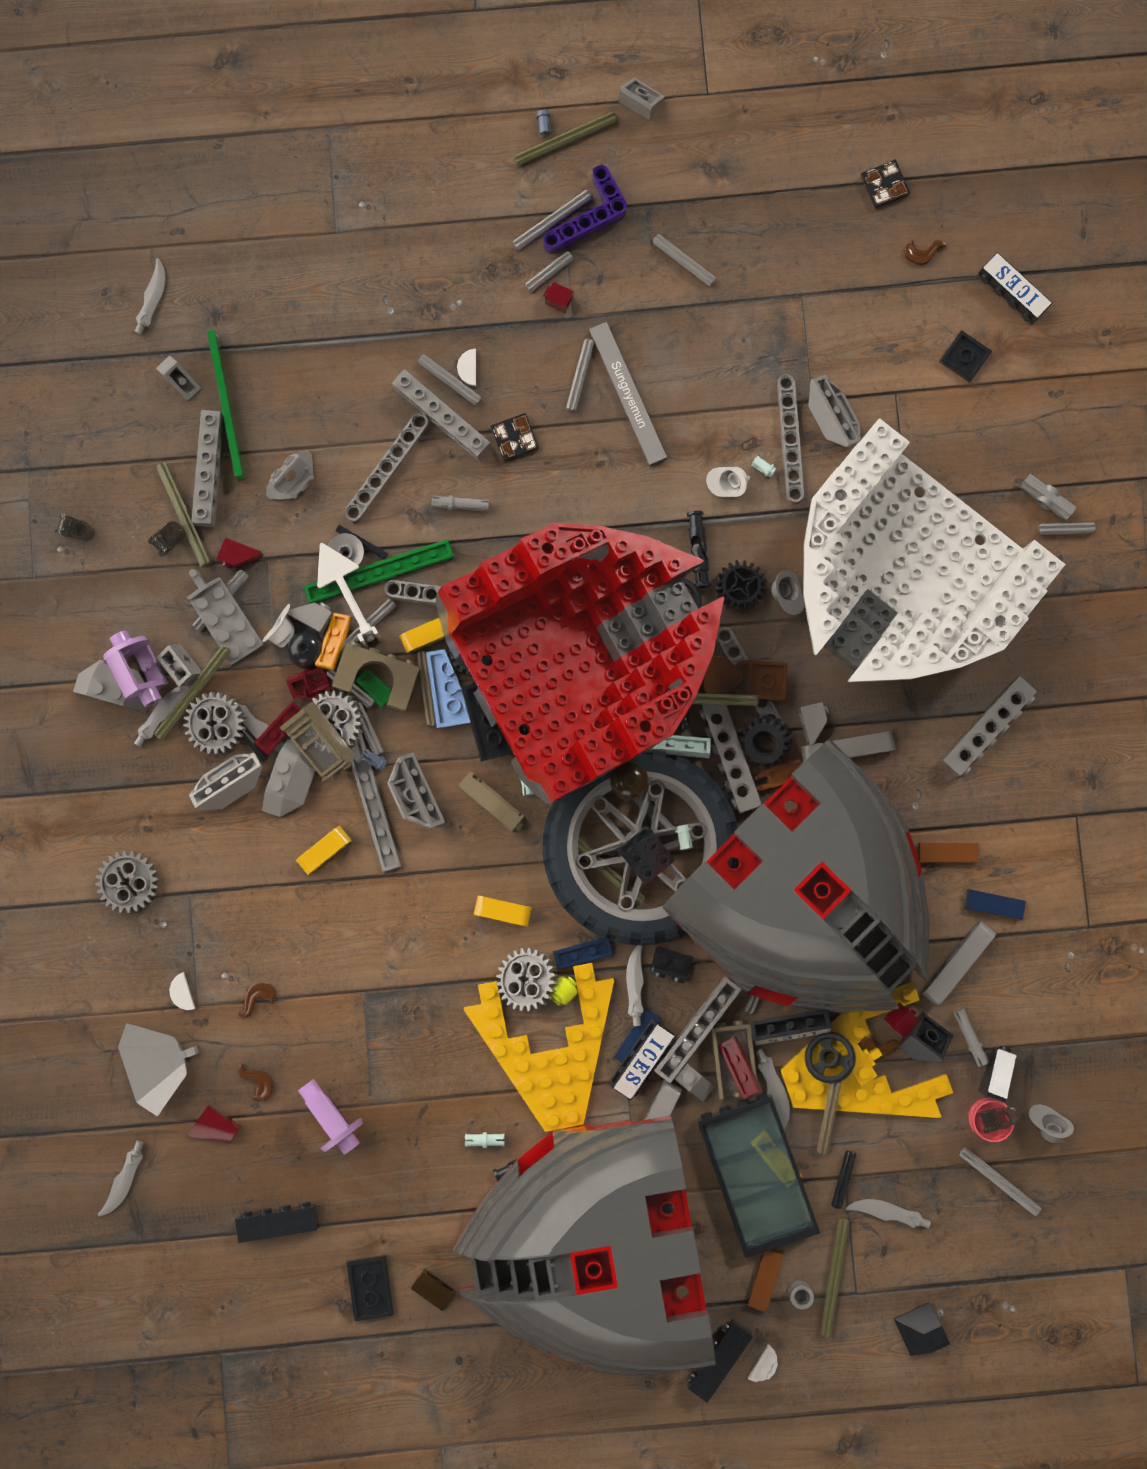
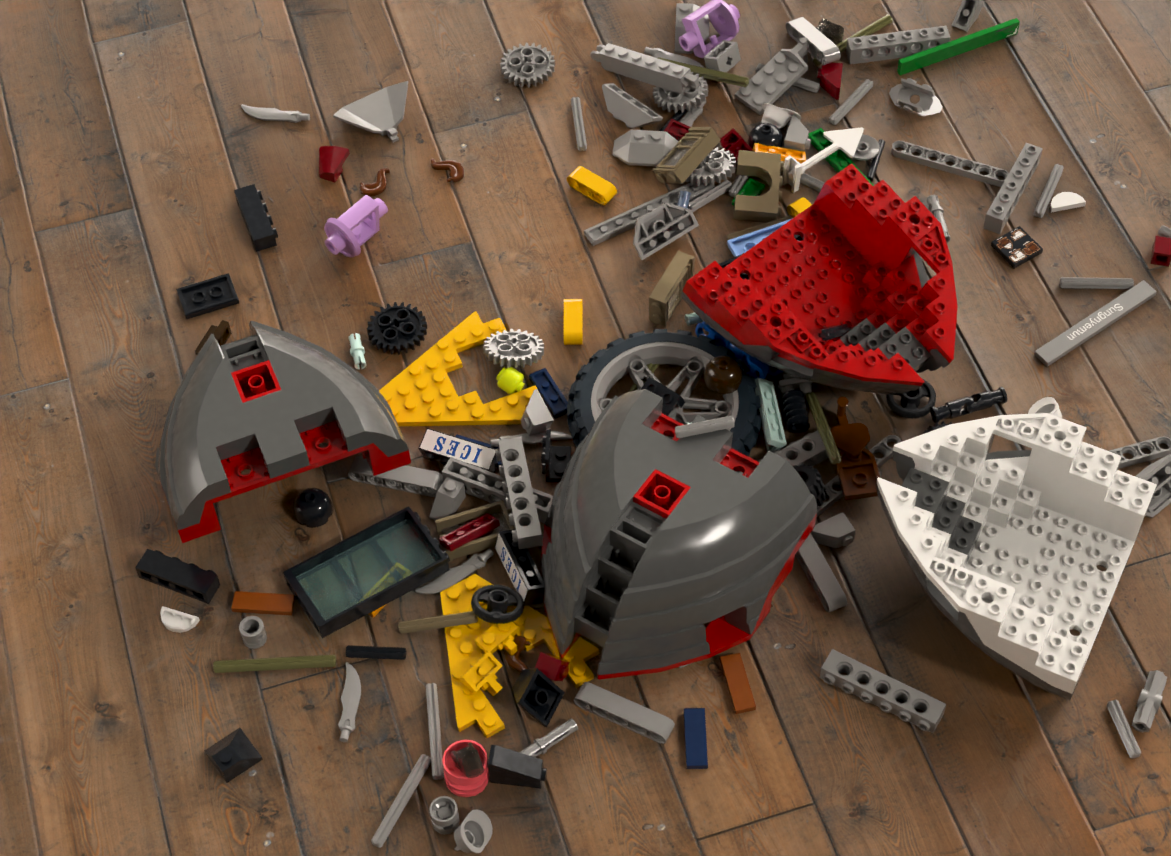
camera: 80 degrees right, 30 degrees down
(177, 754) = (645, 68): none -> light grey hinge
(181, 993) = (442, 118): white tile -> none
(182, 559) = (817, 44): none -> beam
(228, 843) = (578, 124): none -> light grey axle
(273, 543) = (852, 100): none -> light grey axle
(449, 1096) = (397, 328): none -> black gear
(615, 975) = (536, 415): none -> light grey slope
(628, 662) = (834, 332): none -> black axle
(754, 830) = (704, 426): none -> light grey axle
(771, 1009) = (514, 464): none -> light grey brick
(897, 1085) = (483, 675): none -> yellow hinge
(937, 1139) = (434, 731): none -> light grey axle
(1029, 1146) = (444, 815): none -> light grey wheel

